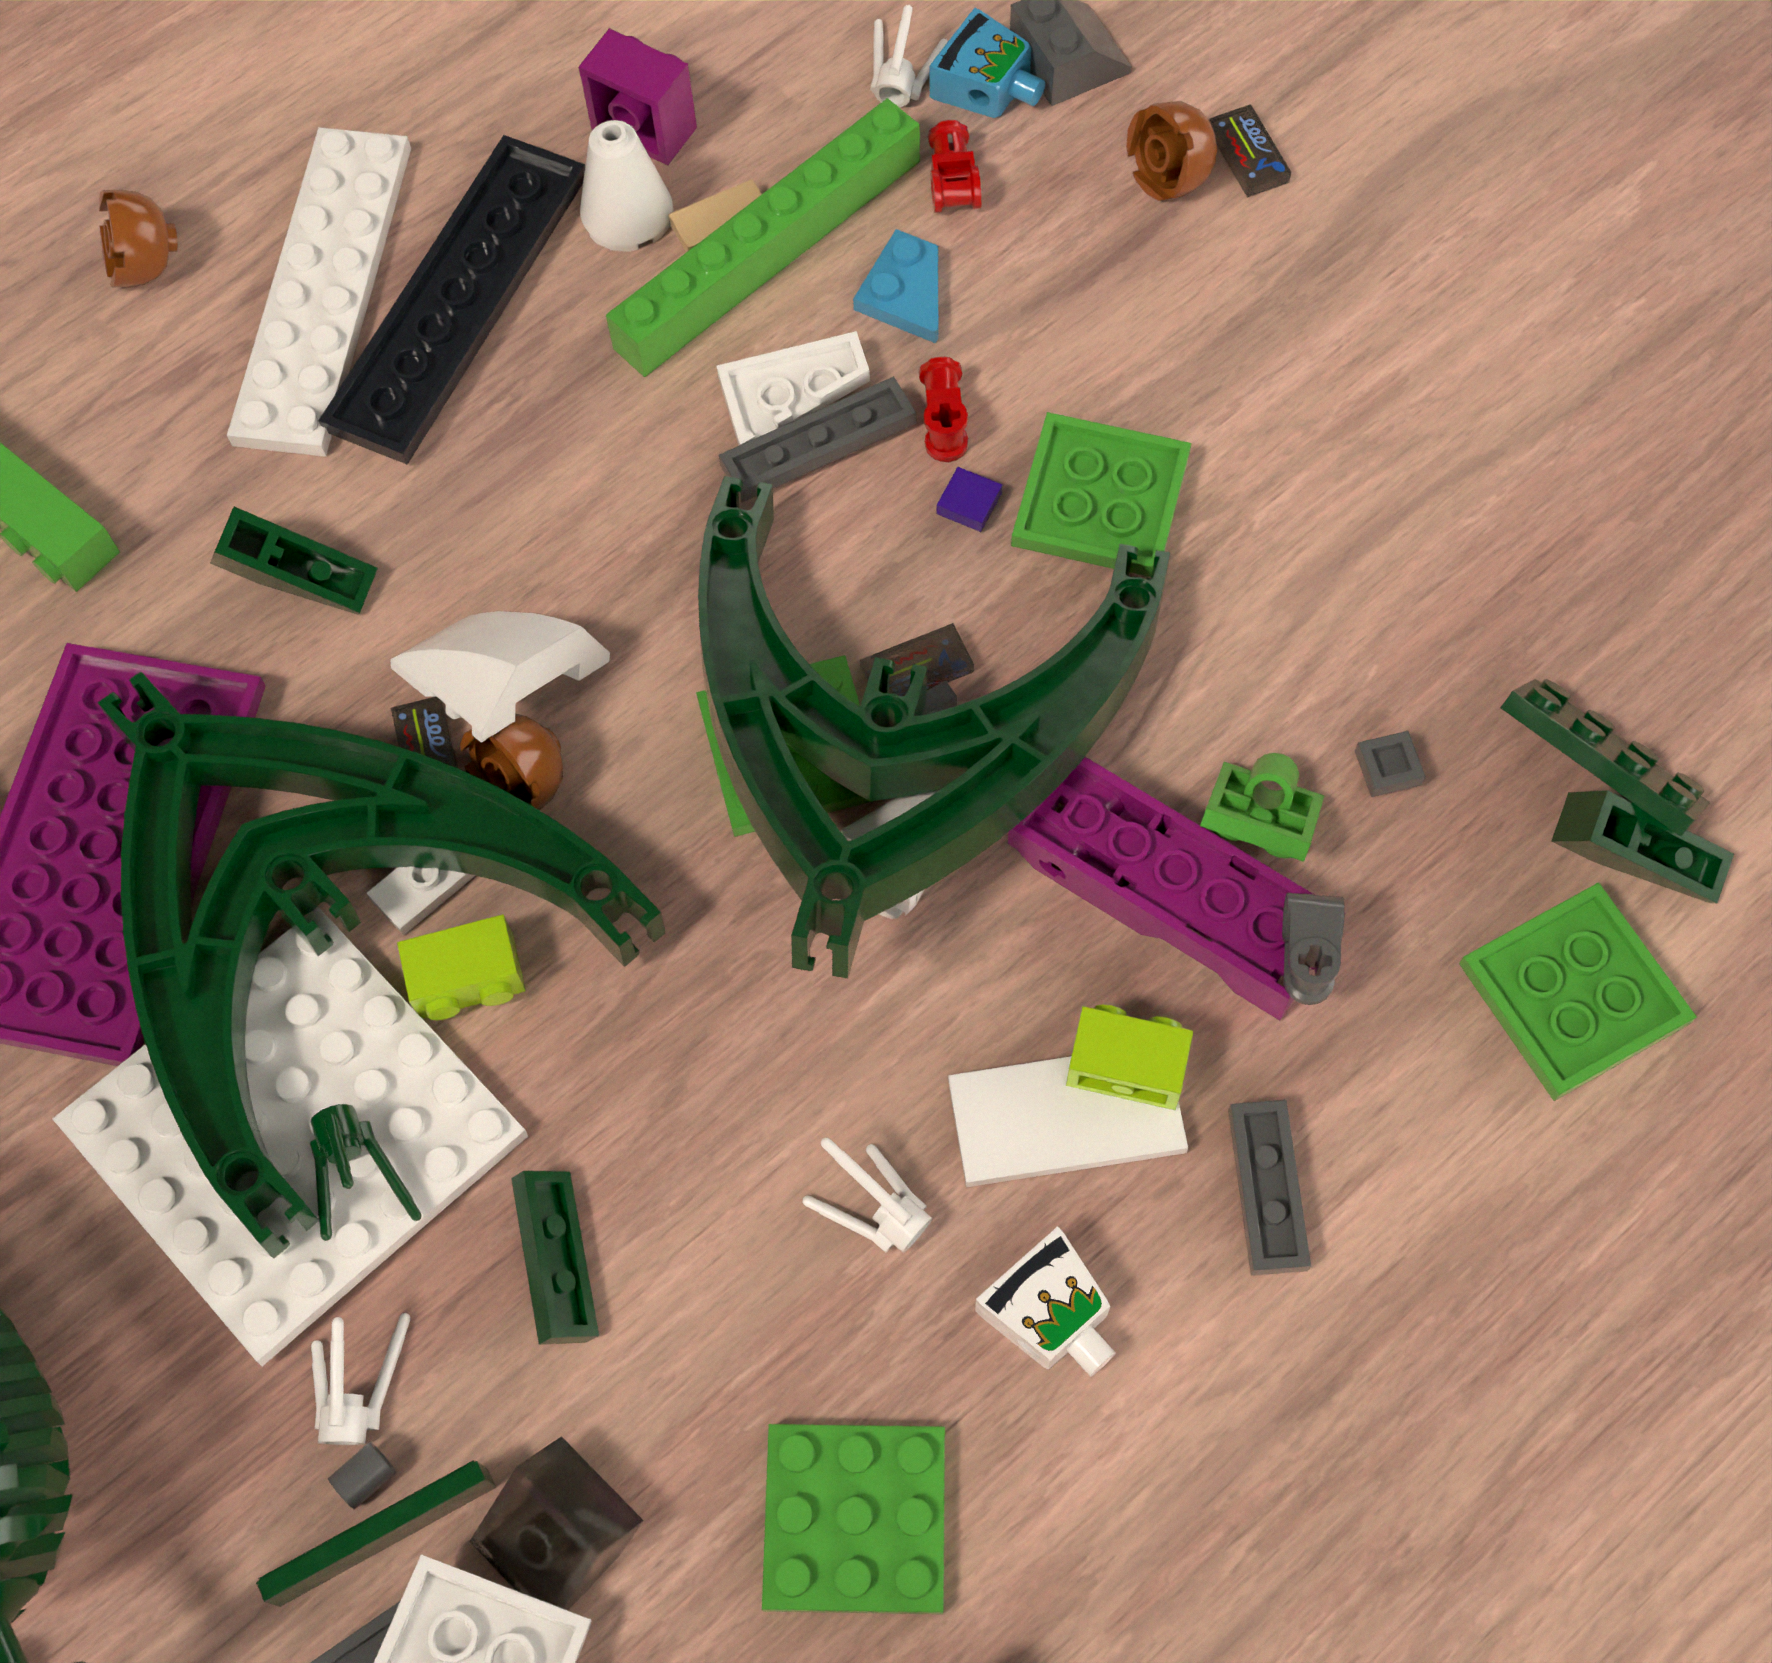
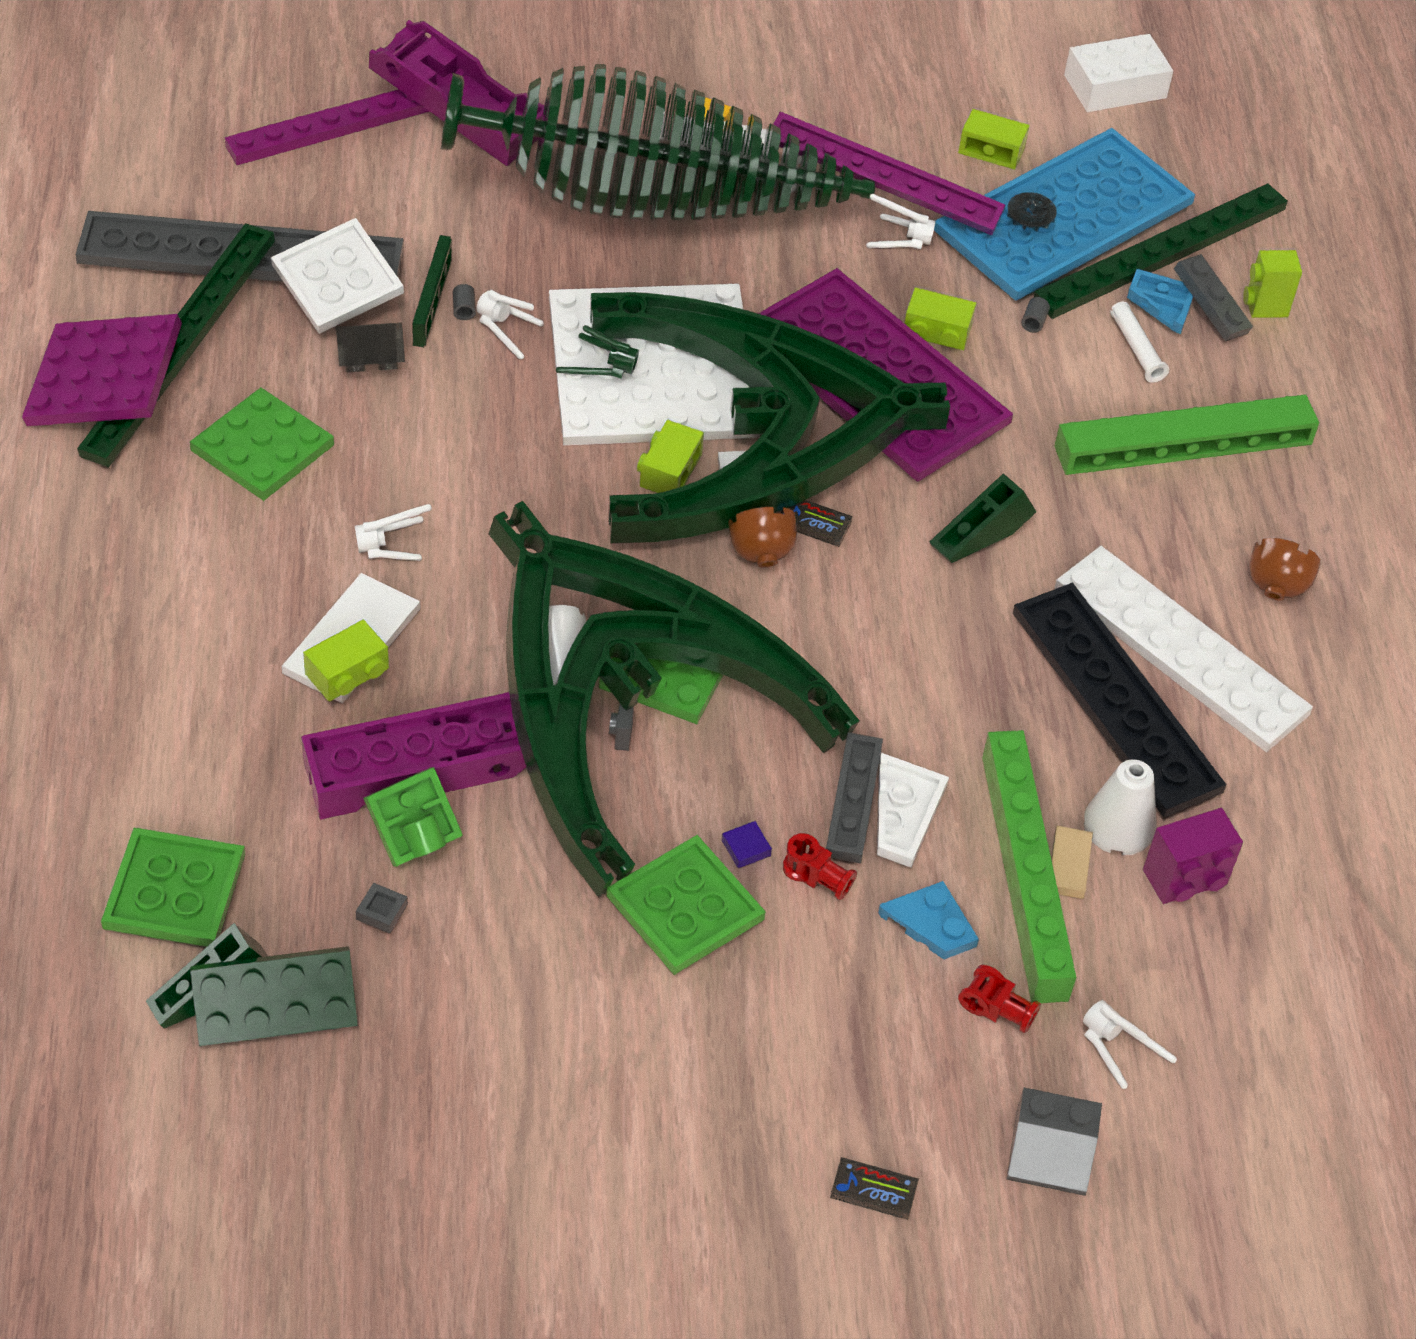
camera: 120 degrees right, 15 degrees down
(496, 661) = (829, 550): white wedge -> none
(554, 1257) = (490, 410): dark green plate -> none
(938, 650) = (662, 749): clear smoke tile -> none
(984, 68) = (1075, 1070): dark azure torso -> none
(1050, 1306) = (269, 560): white torso -> none
(1171, 148) = (903, 1124): dark orange cylinder -> none
(1269, 1188) = (228, 683): dark grey plate -> none
(1312, 939) = (314, 749): dark grey piece -> none

